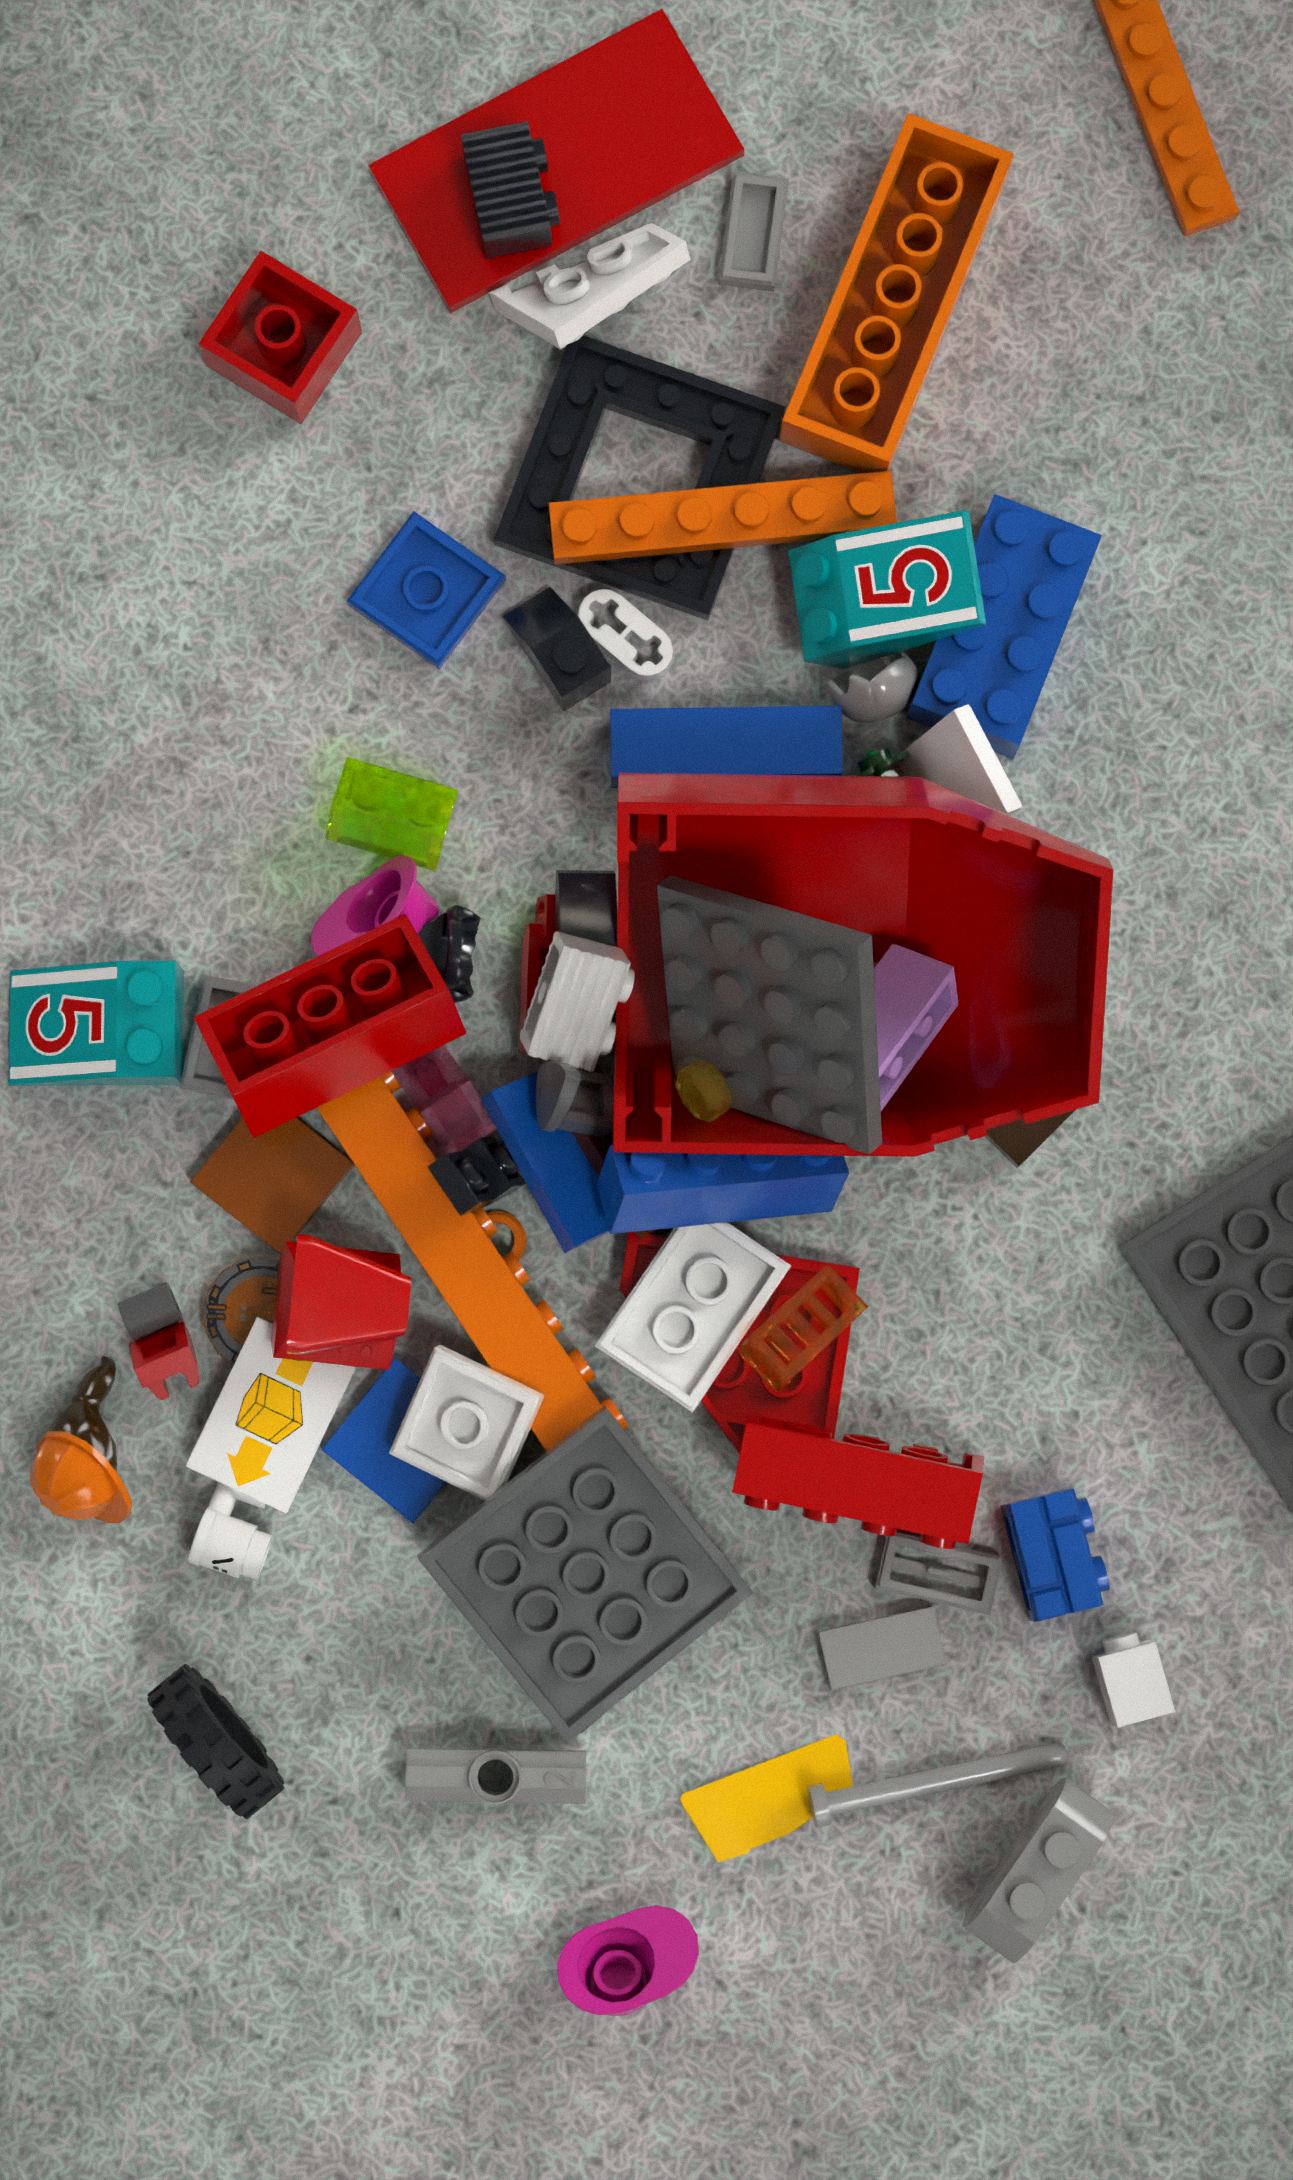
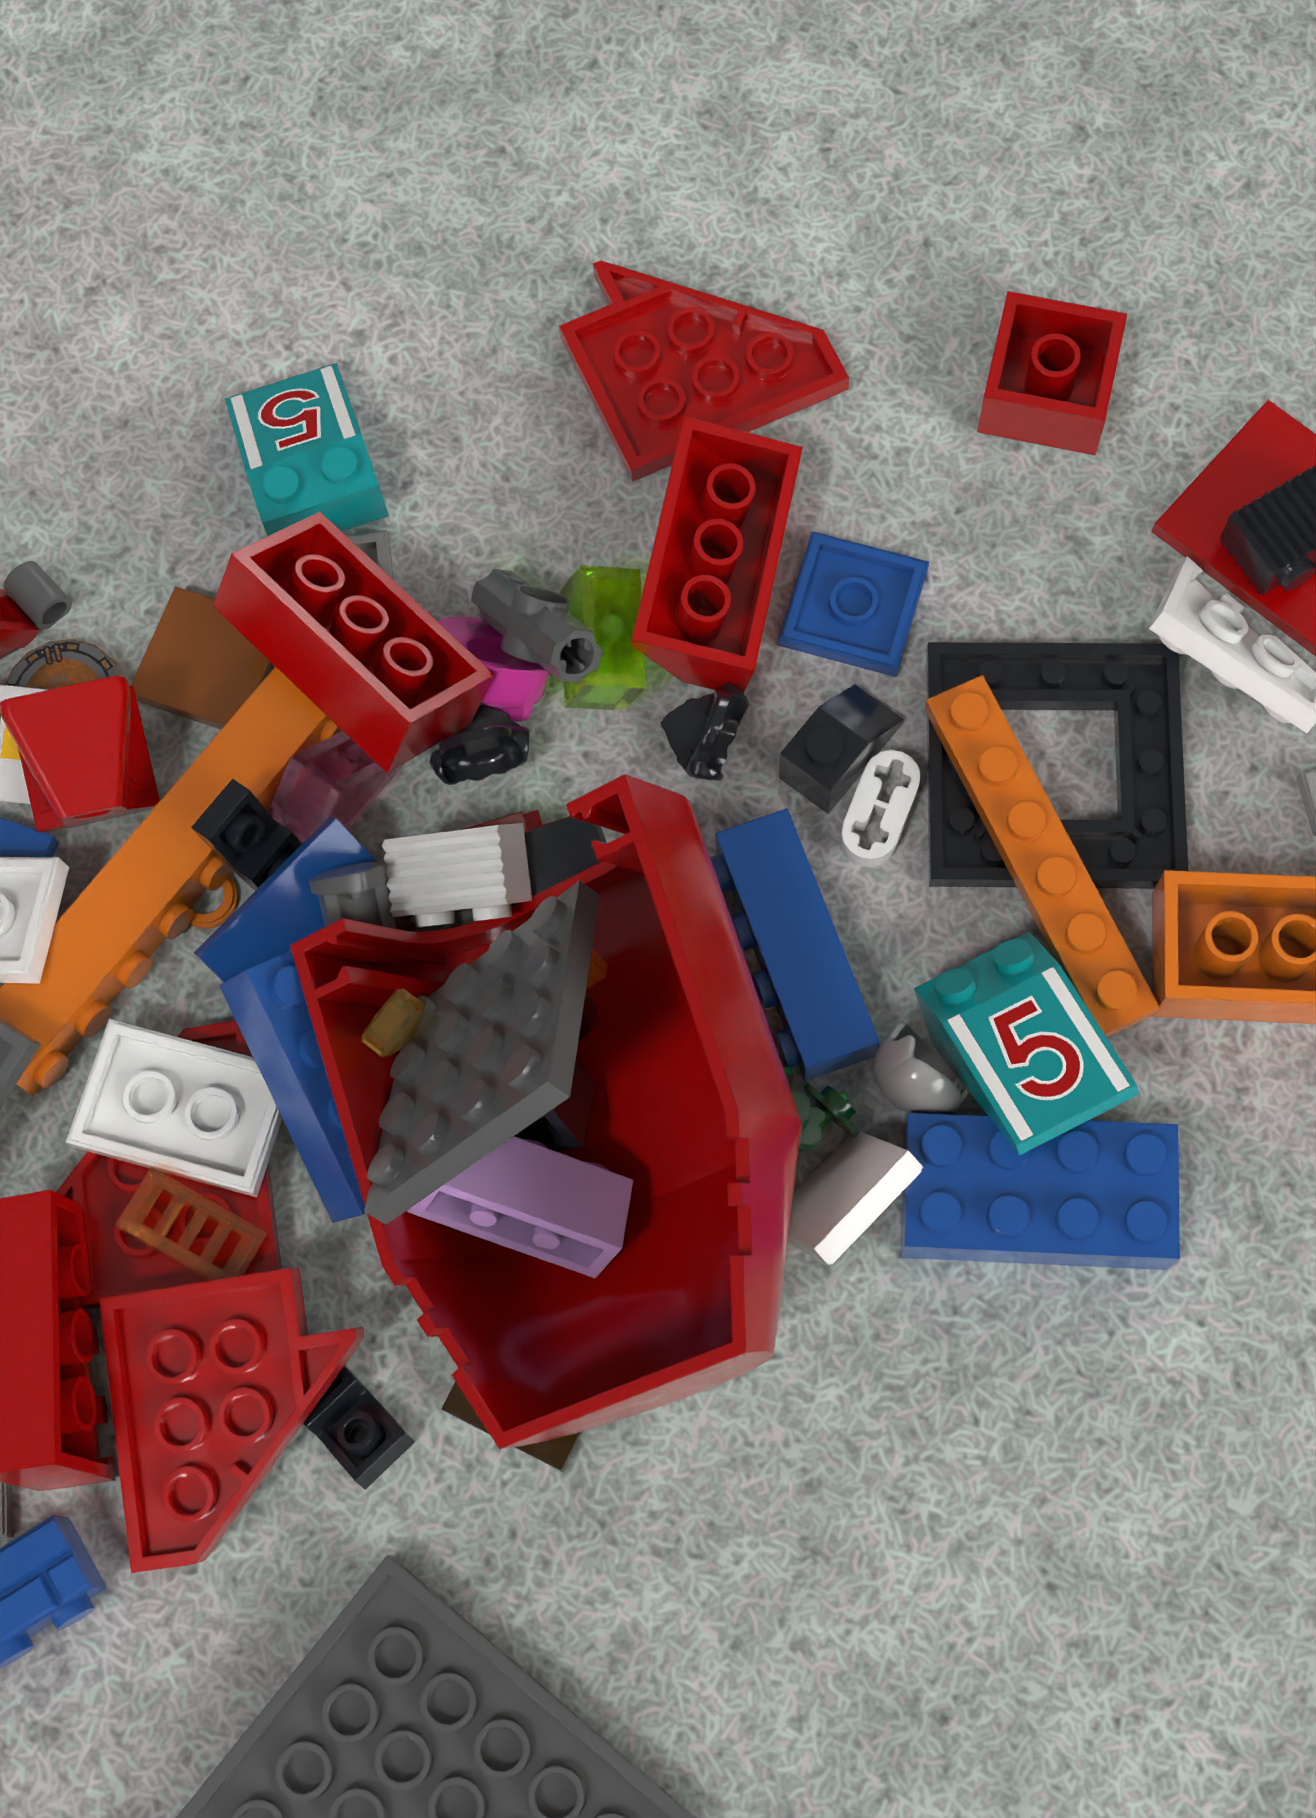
camera: 80 degrees right, 10 degrees down
(143, 652) = (693, 355): none -> red wing
(354, 682) = (716, 554): none -> red slope
(366, 864) = (537, 625): none -> dark grey piece
(504, 758) = (704, 730): none -> black piece
(951, 1351) = (207, 1401): none -> red wing
(990, 1252) = (357, 1429): none -> black slope

